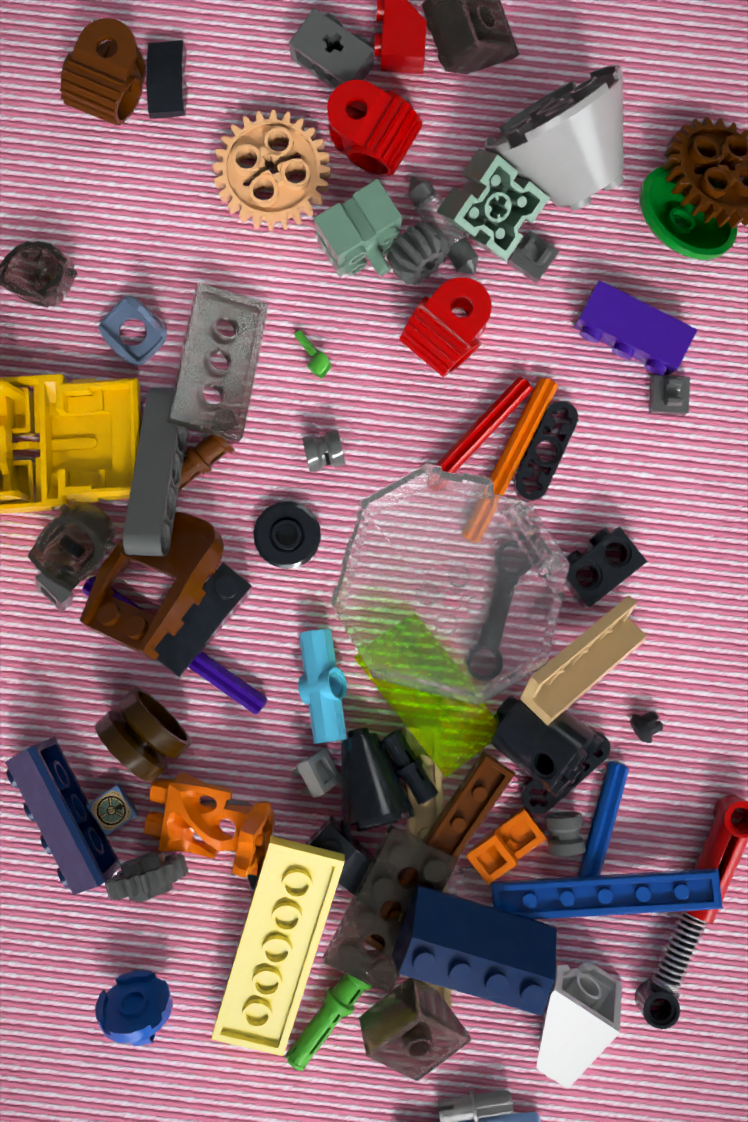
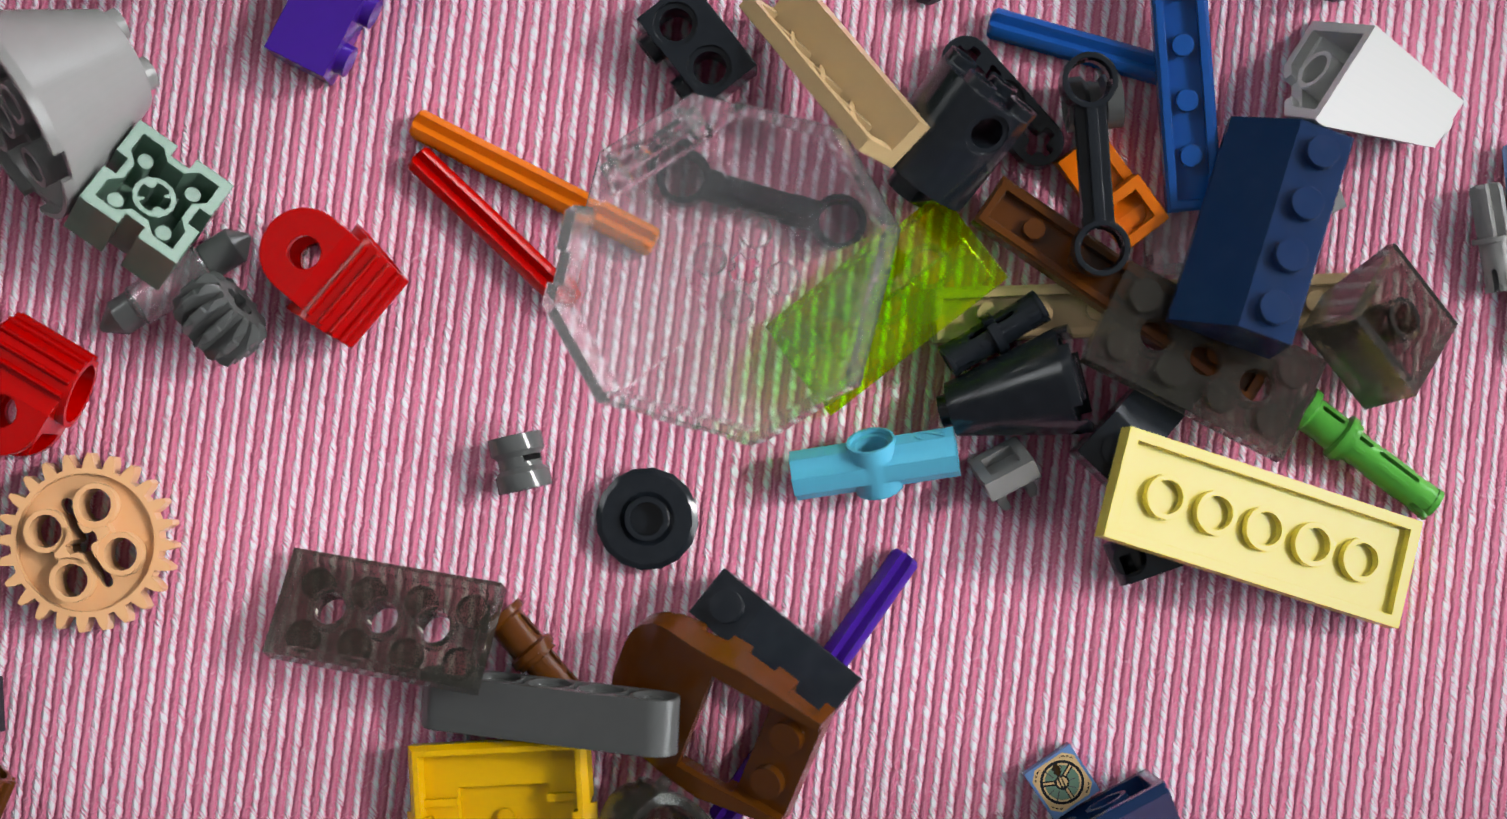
camera: 90 degrees left, 0 degrees up
(129, 309) = (300, 763): sand blue piece -> none
(134, 1008) = (1353, 741): blue tile -> none
(142, 735) = (948, 730): dark brown wheel -> none
(146, 876) = (1158, 724): dark grey gear -> none
(187, 815) = (1066, 665): orange hips -> none
(319, 363) = (385, 469): bright green hand -> none
(359, 231) = (186, 405): sand green brick -> none
(523, 835) = (1094, 164): none -> black piece
(533, 257) = (224, 145): dark grey tile -> none
(564, 431) = (491, 98): black beam -> none

